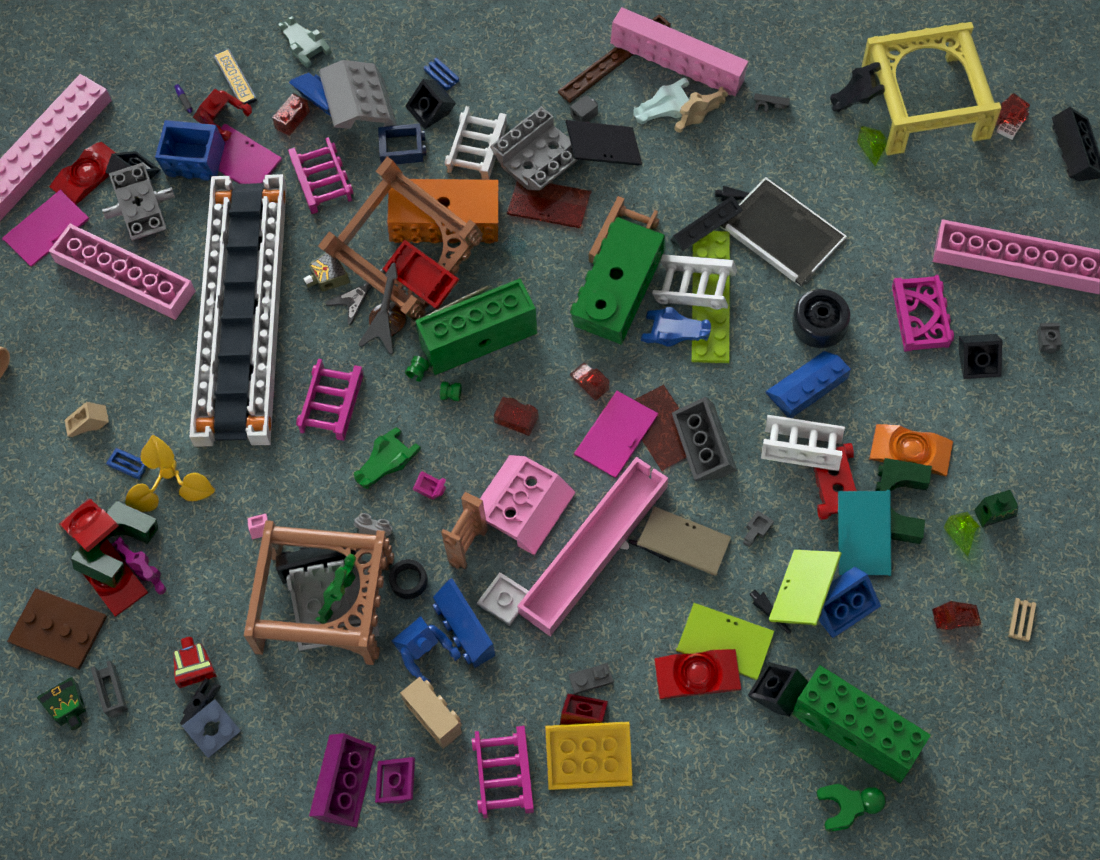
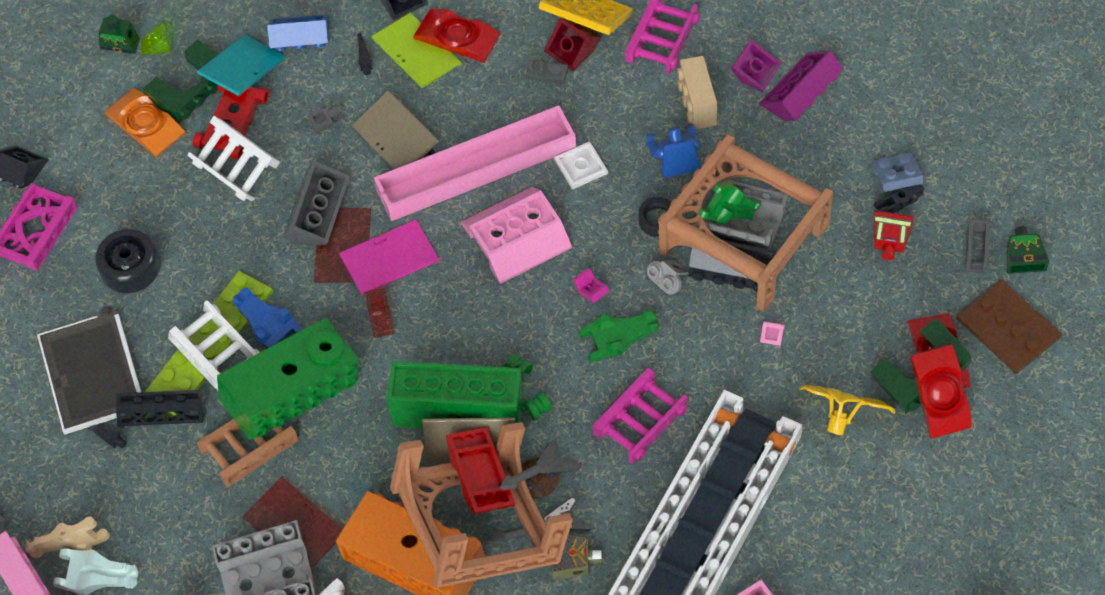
camera: 150 degrees left, 5 degrees down
(86, 418) = (901, 513): tan arch -> none
(113, 458) = (887, 468): blue tile -> none
(140, 564) = (902, 331): magenta animal -> none
(464, 624) = (631, 151): blue slope -> none
(469, 525) = (569, 204): nougat fence -> none
(516, 415) = (470, 312): clear red brick -> none
(603, 143) = (195, 548): black container -> none
(809, 383) = (185, 213): blue slope -> none
(809, 582) = (316, 49): lime container -> none

